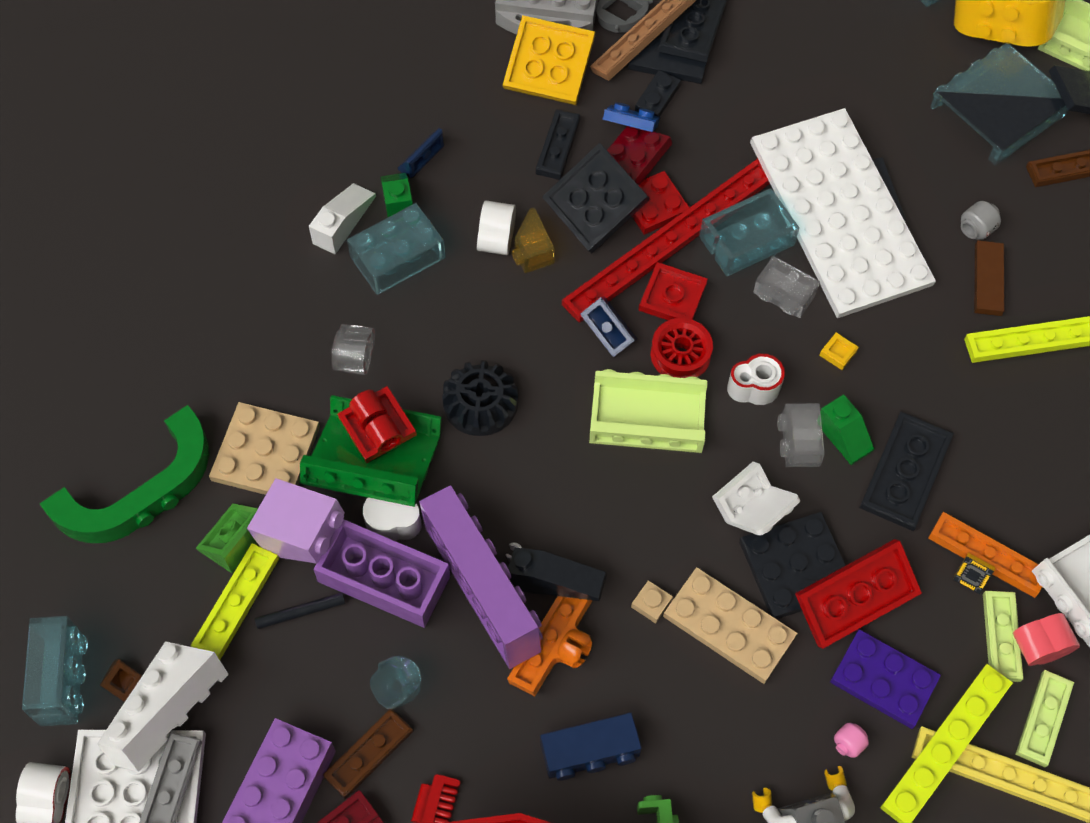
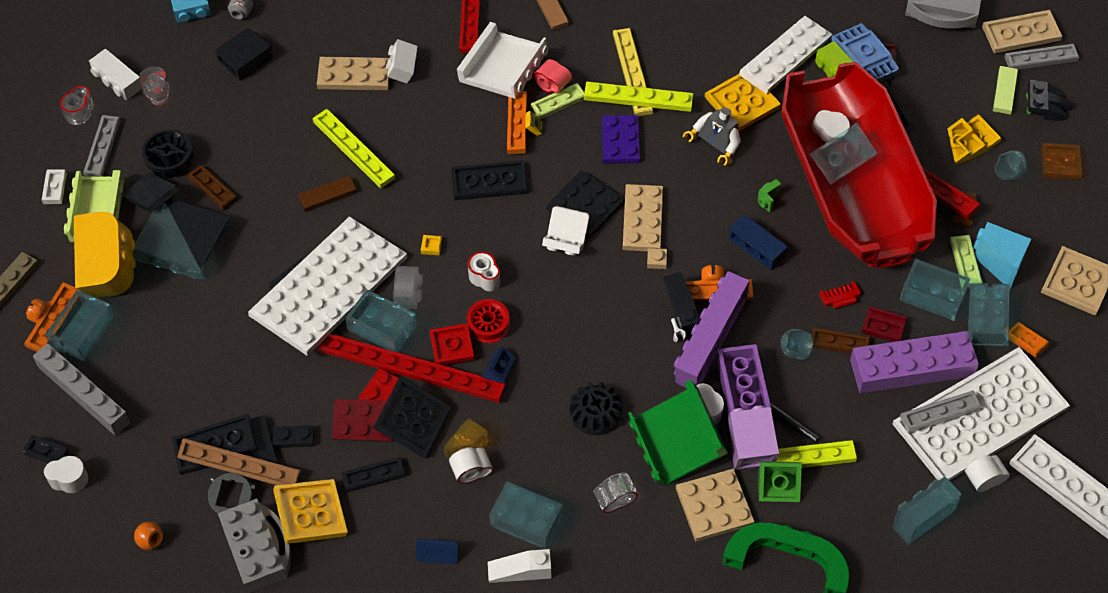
camera: 120 degrees left, 5 degrees down
(120, 680) = (900, 486): reddish brown slope -> none
(159, 703) = (891, 442): white wedge -> none
(376, 423) = (661, 436): red plate -> none
(396, 193) = (481, 544): green slope -> none
(622, 115) = (328, 435): blue plate -> none
(648, 411) = (544, 317): yellowish green panel -> none
(802, 435) = (504, 234): clear brick -> none
(846, 429) = (485, 217): green slope -> none
(851, 740) = (666, 136): bright pink piece -> none
(858, 593) = (585, 164): red plate -> none
(980, 220) = (287, 212): light grey head -> none
(1044, 718) = (592, 67): yellowish green tile -> none

